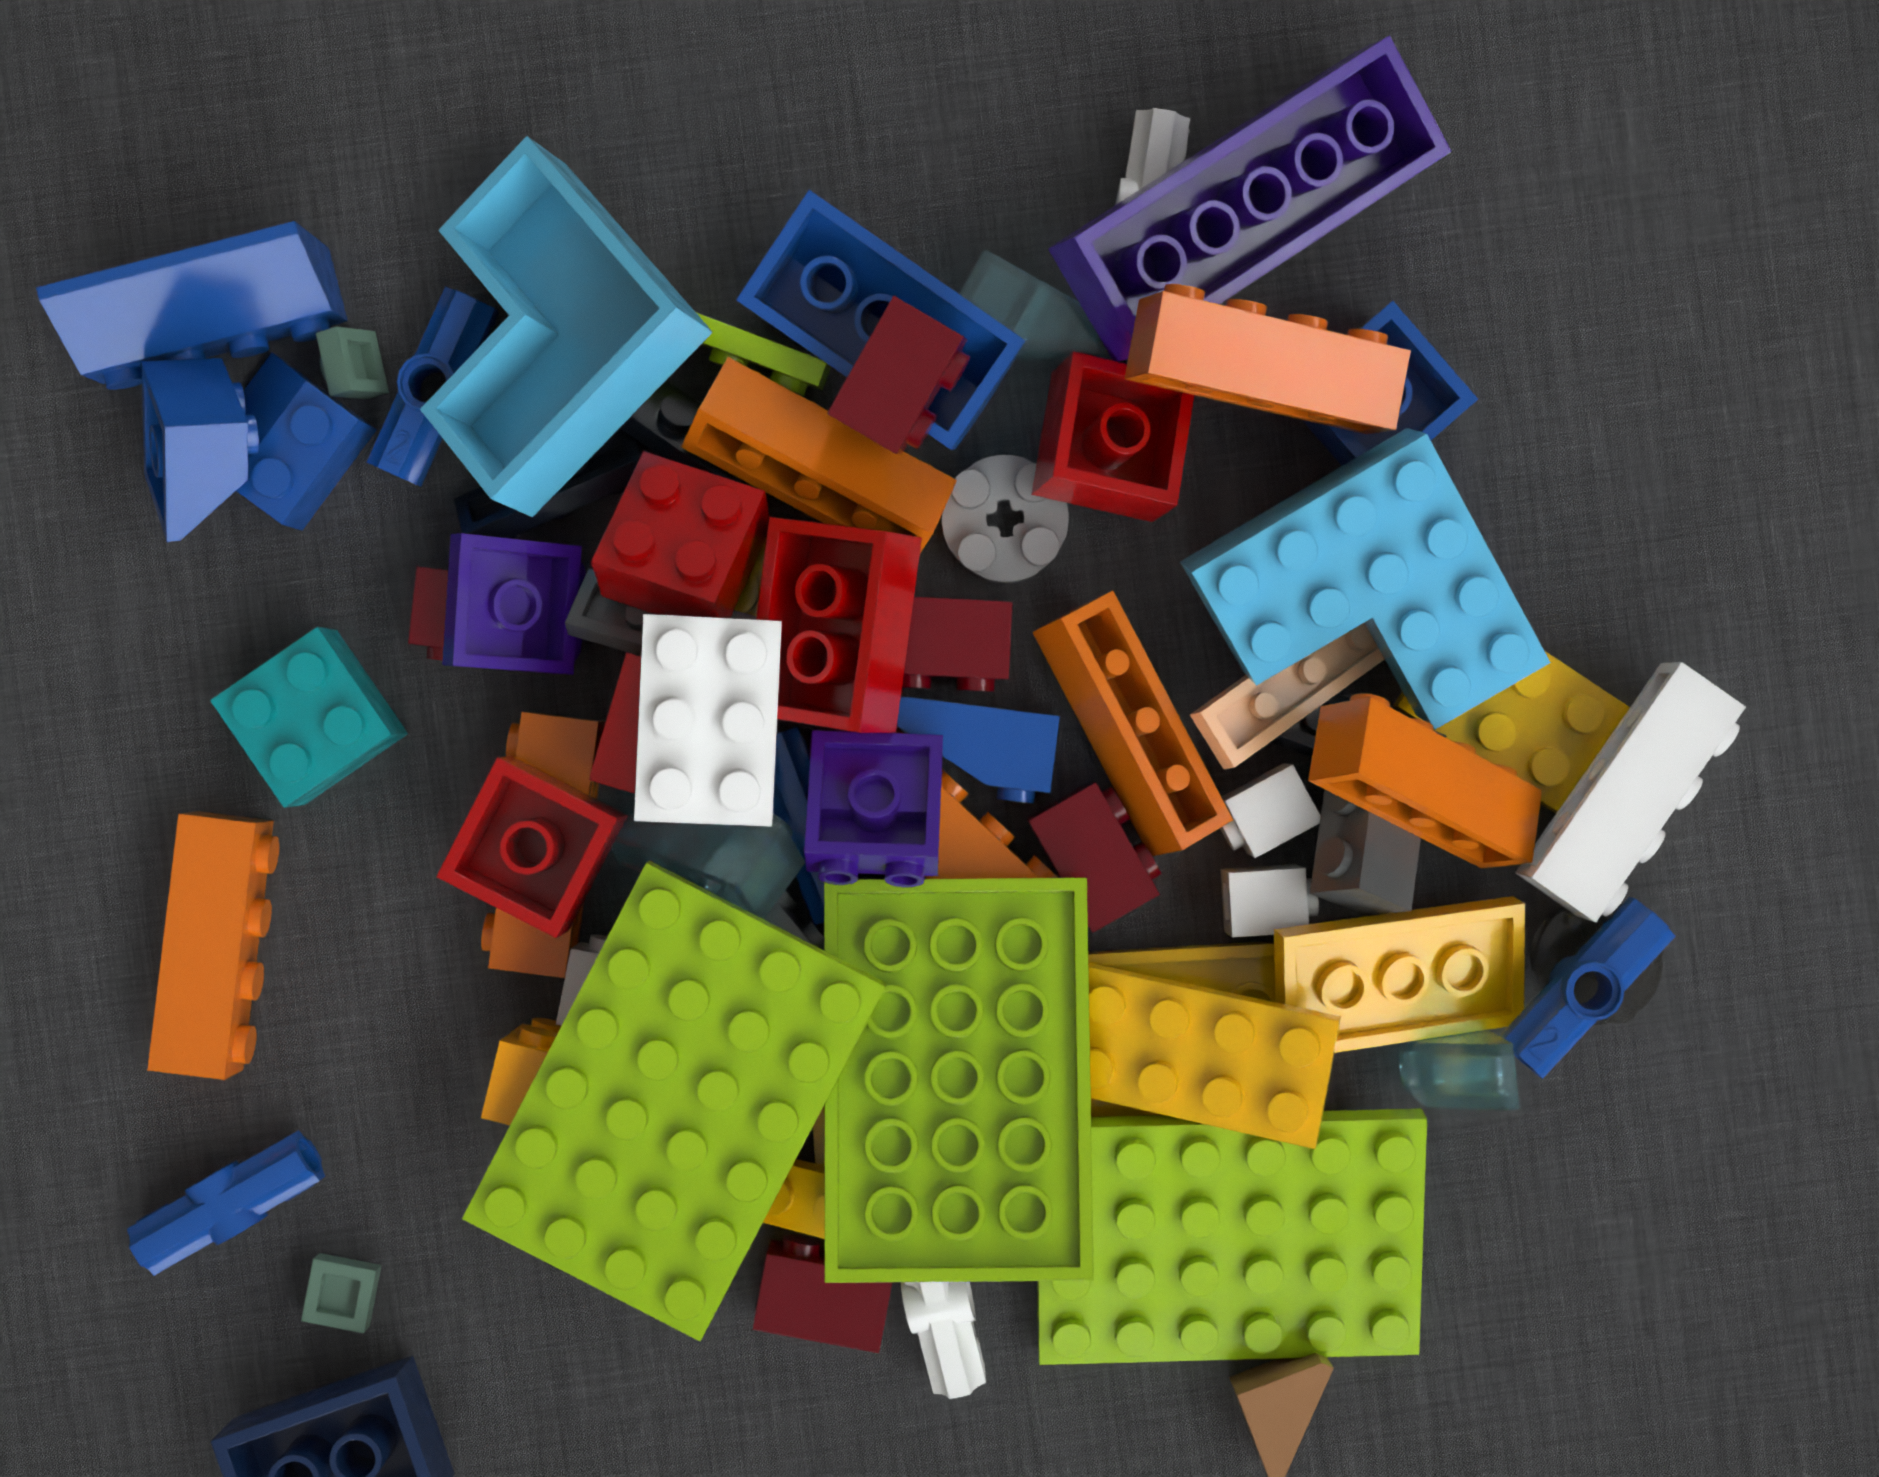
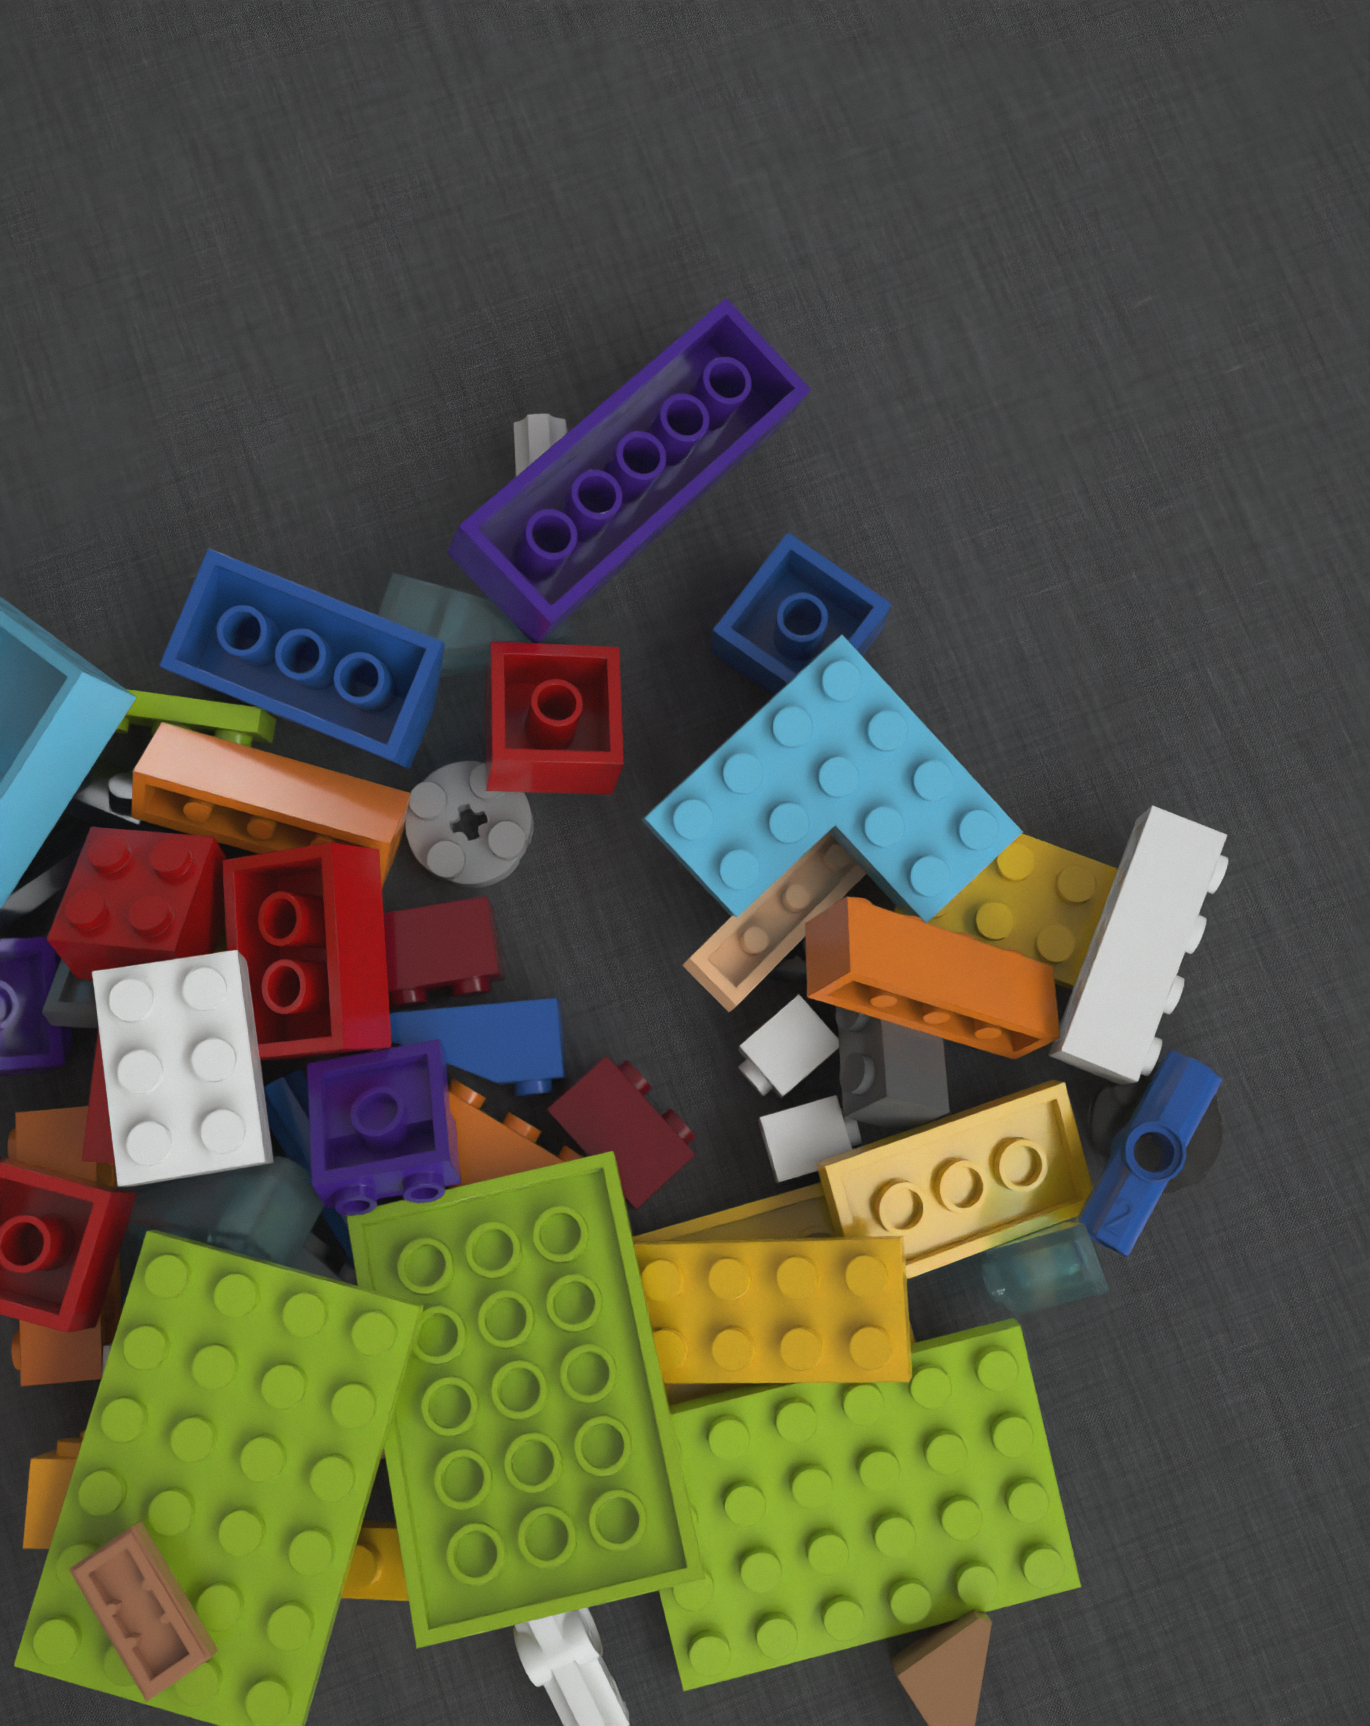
camera: 10 degrees left, 10 degrees down
(593, 1199) = (143, 1610): none -> nougat plate
(802, 1306) = (436, 1681): dark red brick -> none
(899, 377) = (324, 698): dark red brick -> none
(1132, 725) = (631, 991): orange brick -> none
(1267, 361) = (673, 603): orange brick -> none

